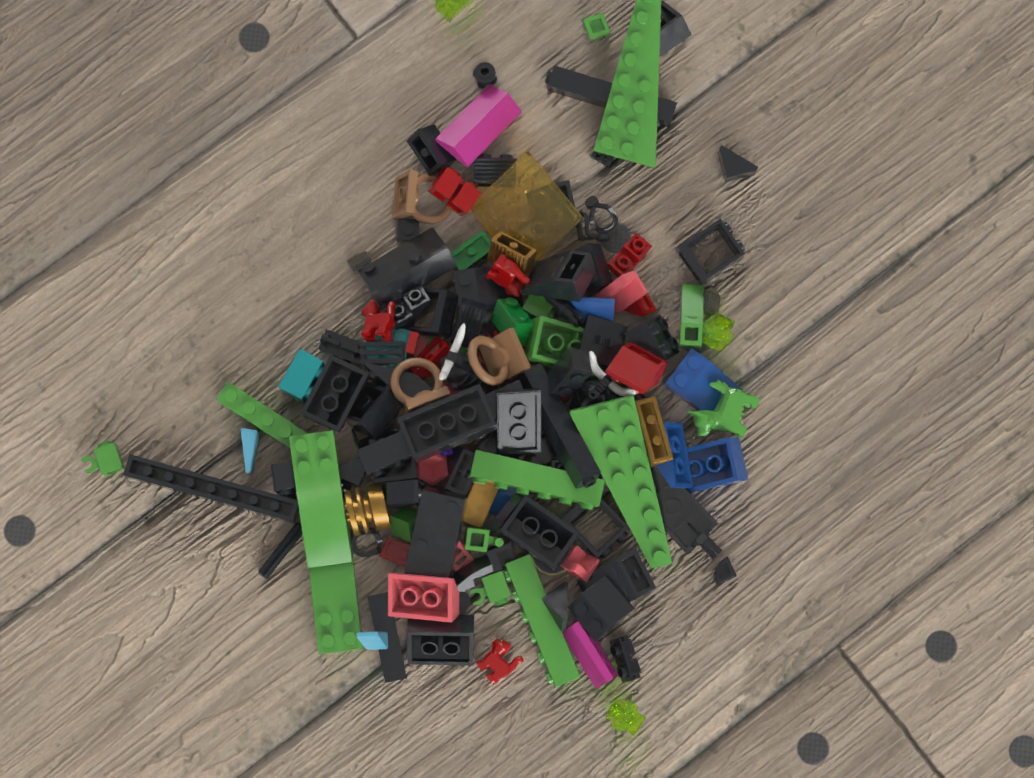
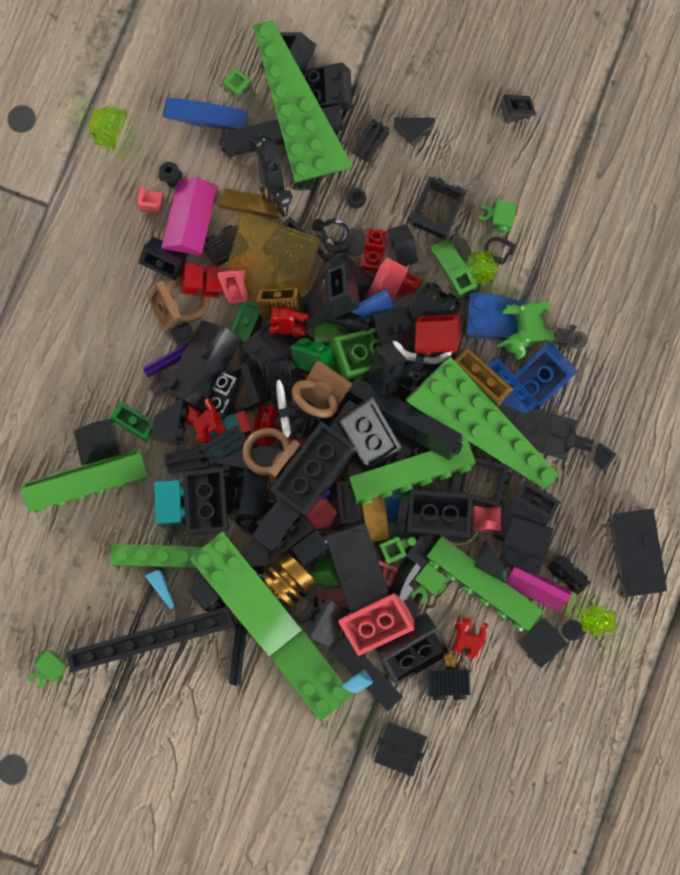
camera: 25 degrees left, 0 degrees up
(239, 310) = (84, 480): none -> bright green brick
(270, 284) = (97, 441): none -> black slope
(315, 283) = (132, 421): none -> green brick
(345, 304) = (169, 423): none -> black slope
(374, 571) = (326, 624): none -> black slope
(375, 723) = (400, 749): none -> black plate
(378, 245) = (165, 361): none -> dark purple axle
(451, 88) = (149, 200): none -> coral panel
(454, 690) = (448, 683): none -> black brick
(469, 671) = (450, 660): none -> pearl gold plate
(479, 213) = (234, 286): none -> coral slope
(543, 146) = (248, 203): none -> pearl gold slope
(550, 38) = (204, 113): none -> blue slope
(563, 706) = (542, 643): none -> black piece
(576, 130) = (271, 174): none -> black animal
(597, 711) = (572, 630): none -> black plate
(642, 192) = (356, 192): none -> black plate
(658, 268) = (403, 245): none -> black slope
(681, 80) = (331, 85): none -> black slope
(699, 677) = (637, 553): none -> black brick
(704, 144) = (379, 126): none -> black tile
(738, 333) = (511, 246): none -> black piece
(757, 444) = (568, 338): none -> clear smoke hips
(765, 294) = (502, 216): none -> bright green brick
(842, 203) = (517, 107): none -> black slope

